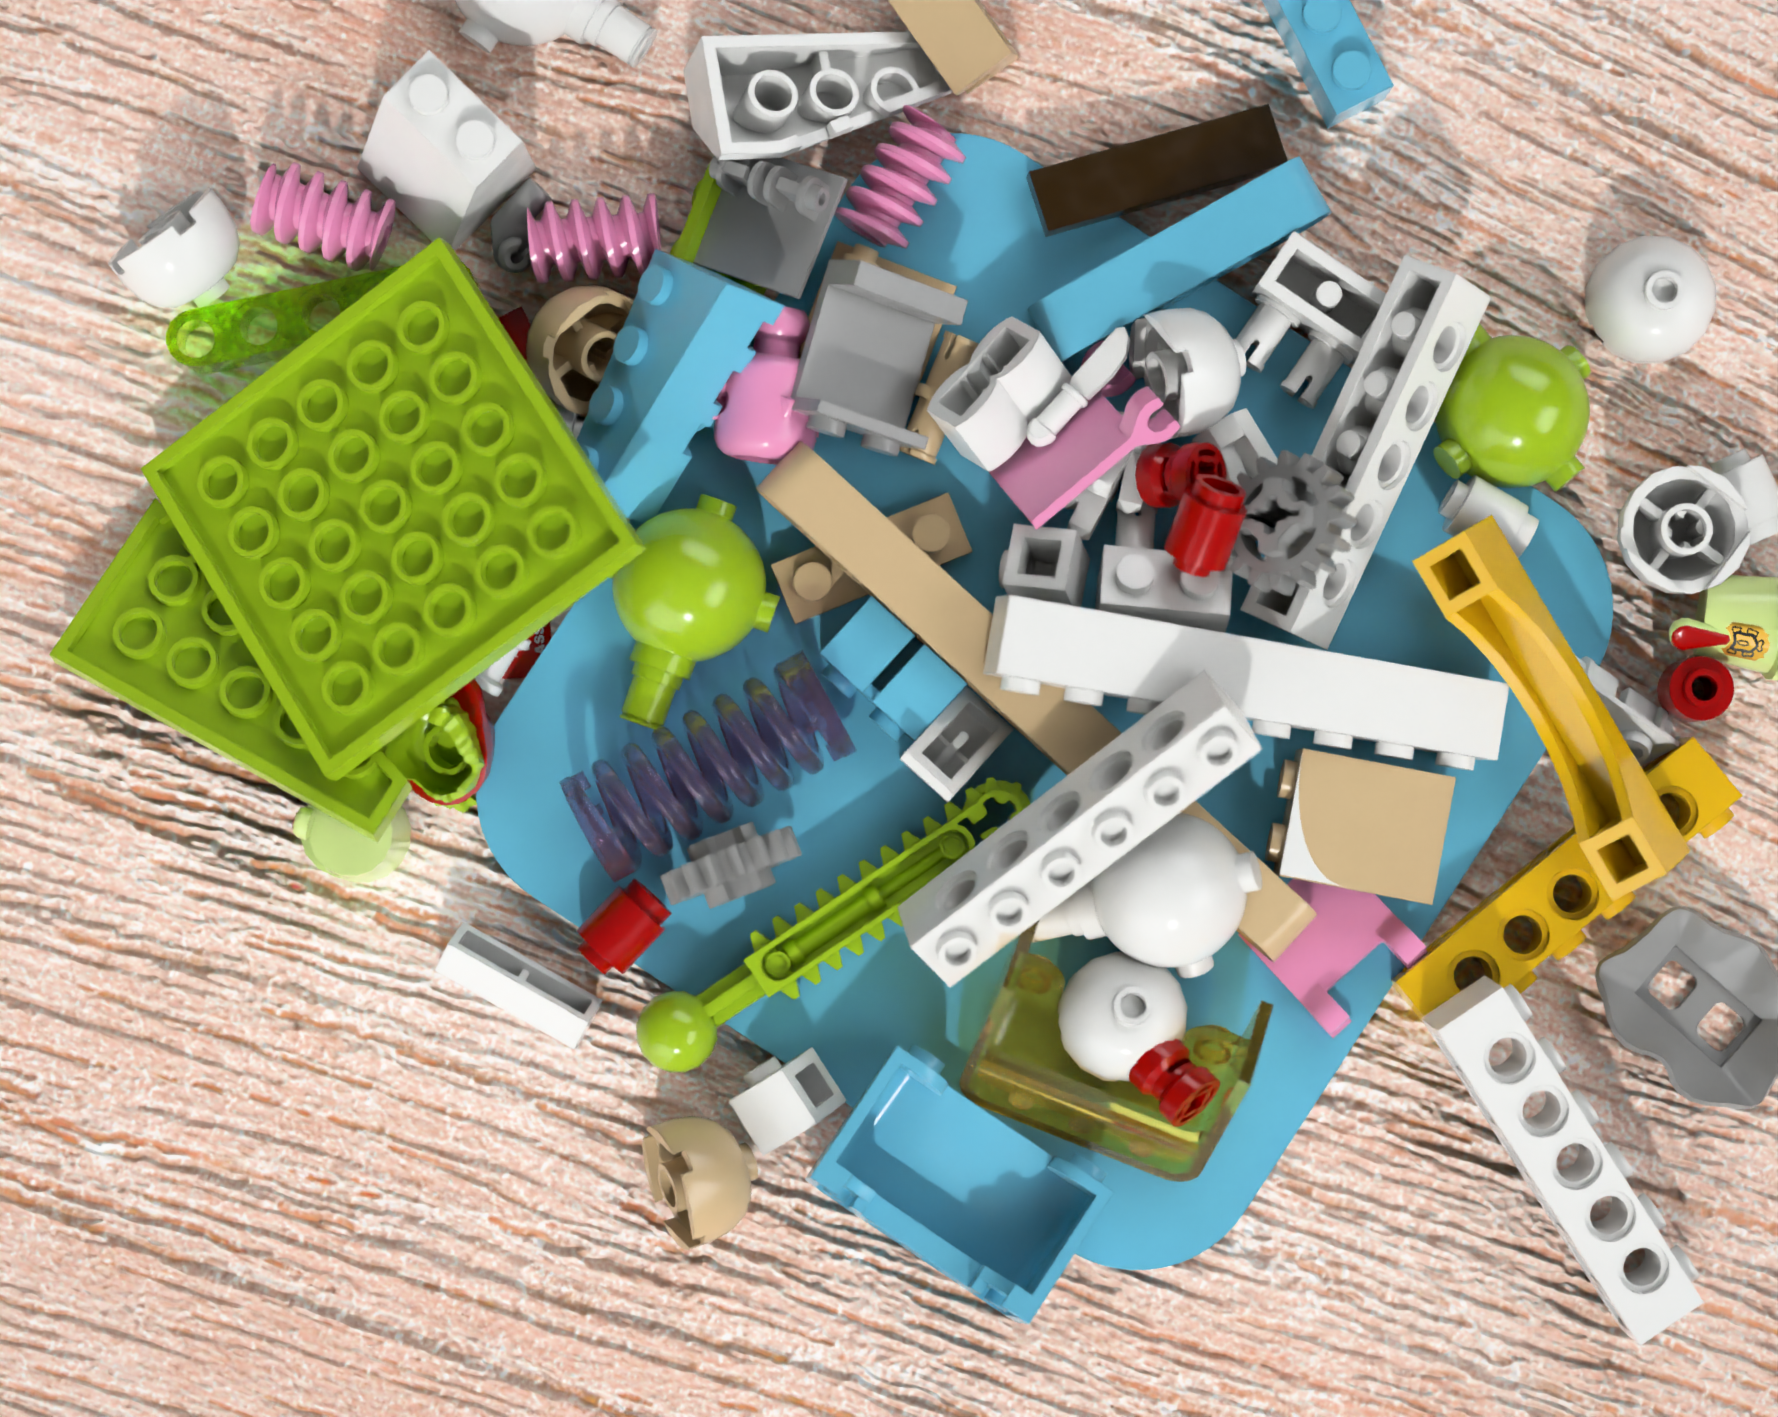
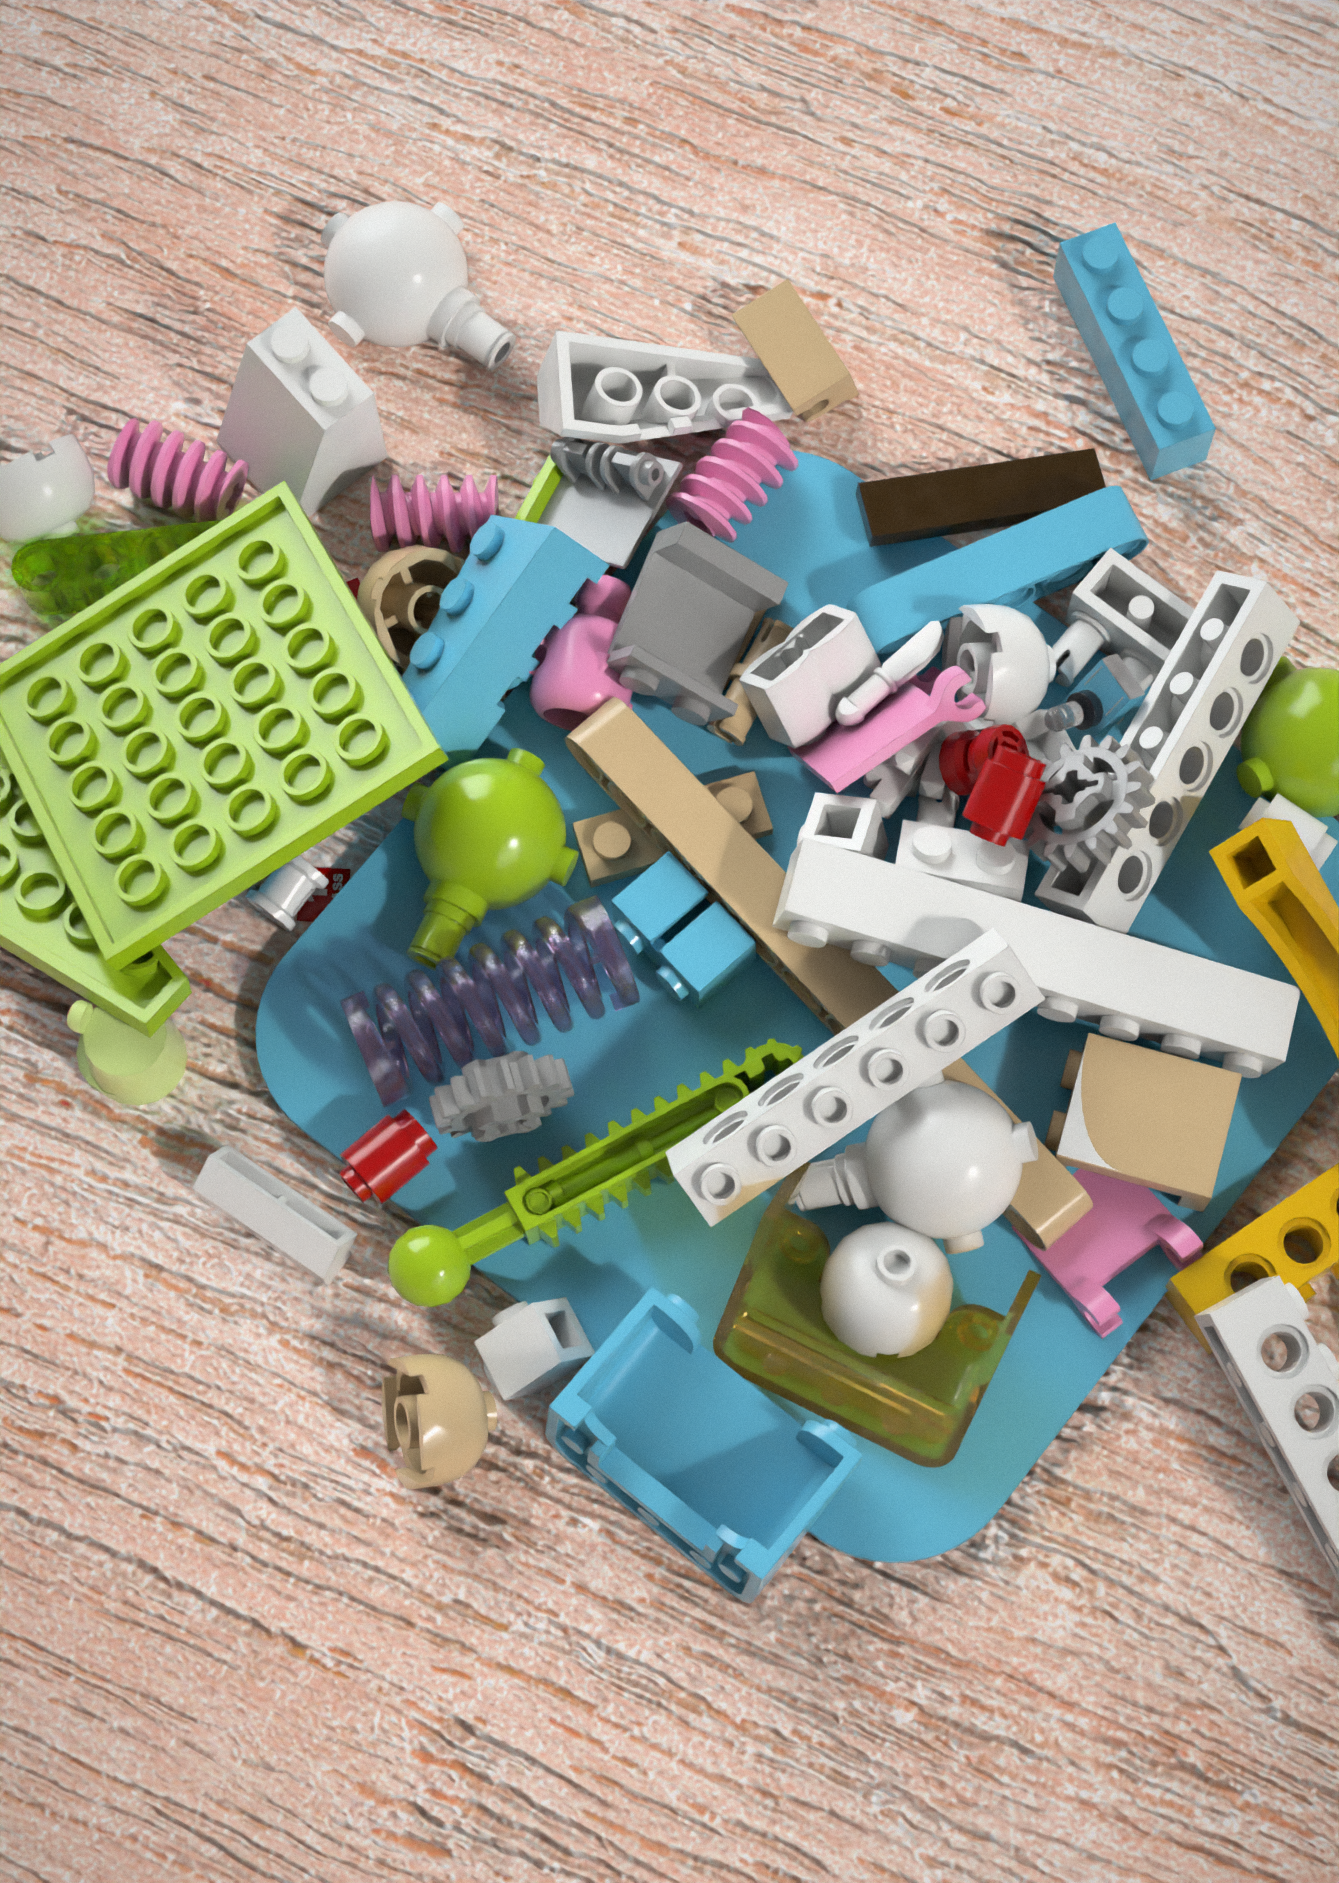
camera: 10 degrees right, 15 degrees down
(447, 750) = (230, 962): lime hair -> none
(510, 227) = (354, 503): light grey arm -> none
(956, 744) = (736, 1010): white slope -> none
(1174, 1081) = (940, 1356): red wheel -> none
(1286, 402) = (1096, 702): none -> piece

